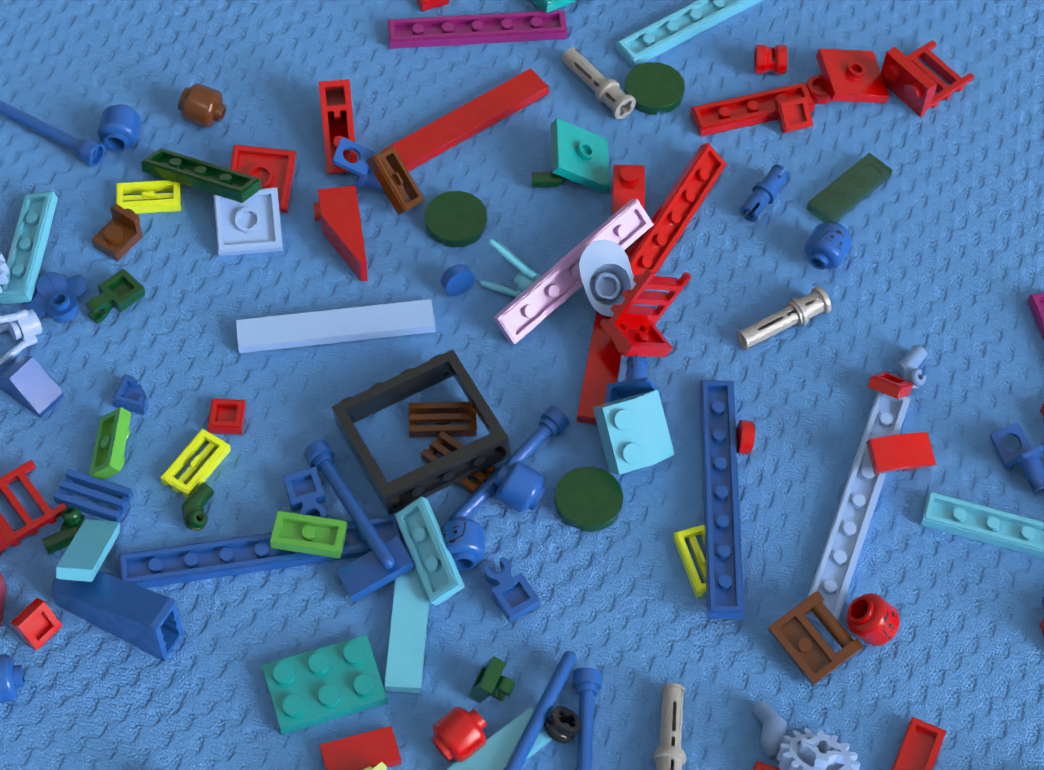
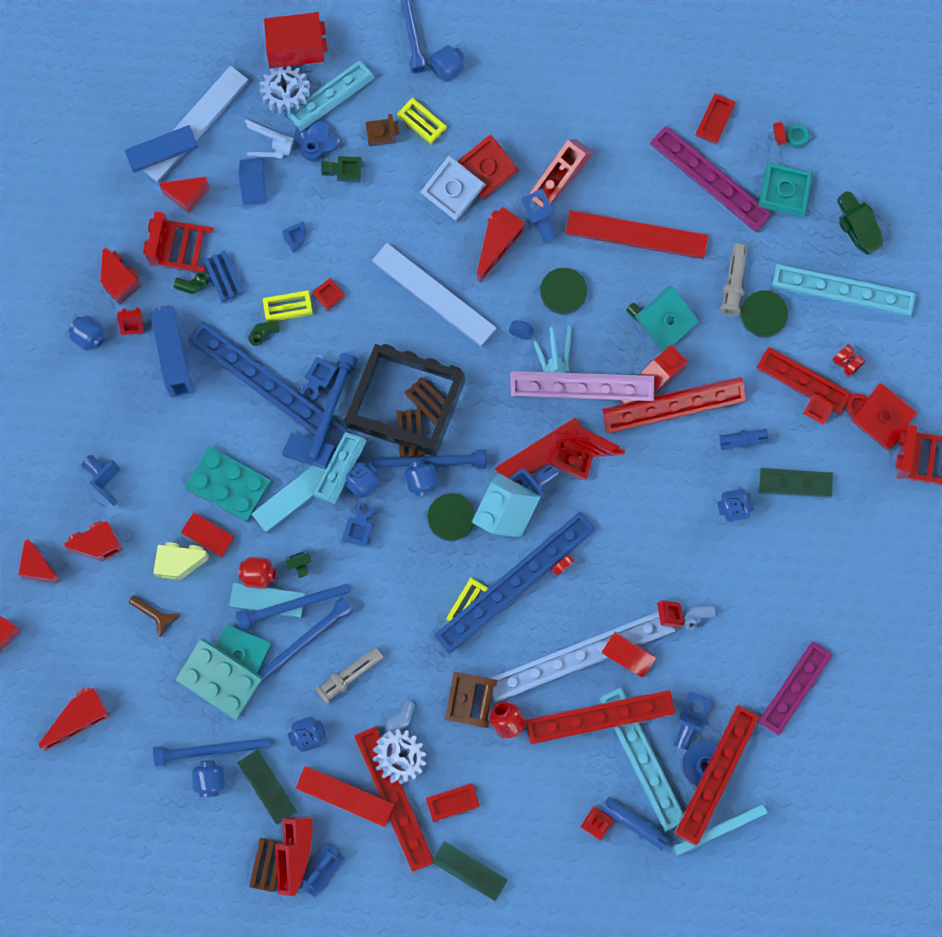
camera: 55 degrees right, 20 degrees up
(87, 550) = (185, 308): medium azure tile -> none
(110, 444) = (255, 256): bright green plate -> none
(201, 175) = (455, 137): dark green tile -> none
(202, 105) = (503, 90): reddish brown head -> none
(308, 534) = (294, 402): bright green plate -> none
(392, 181) = (542, 239): reddish brown tile -> none
(562, 724) = (304, 622): black bush -> none
(605, 275) = (587, 408): light blue piece -> none
(795, 313) = (634, 514): light grey pin -> none
(947, 533) = (600, 717): none -> red tile

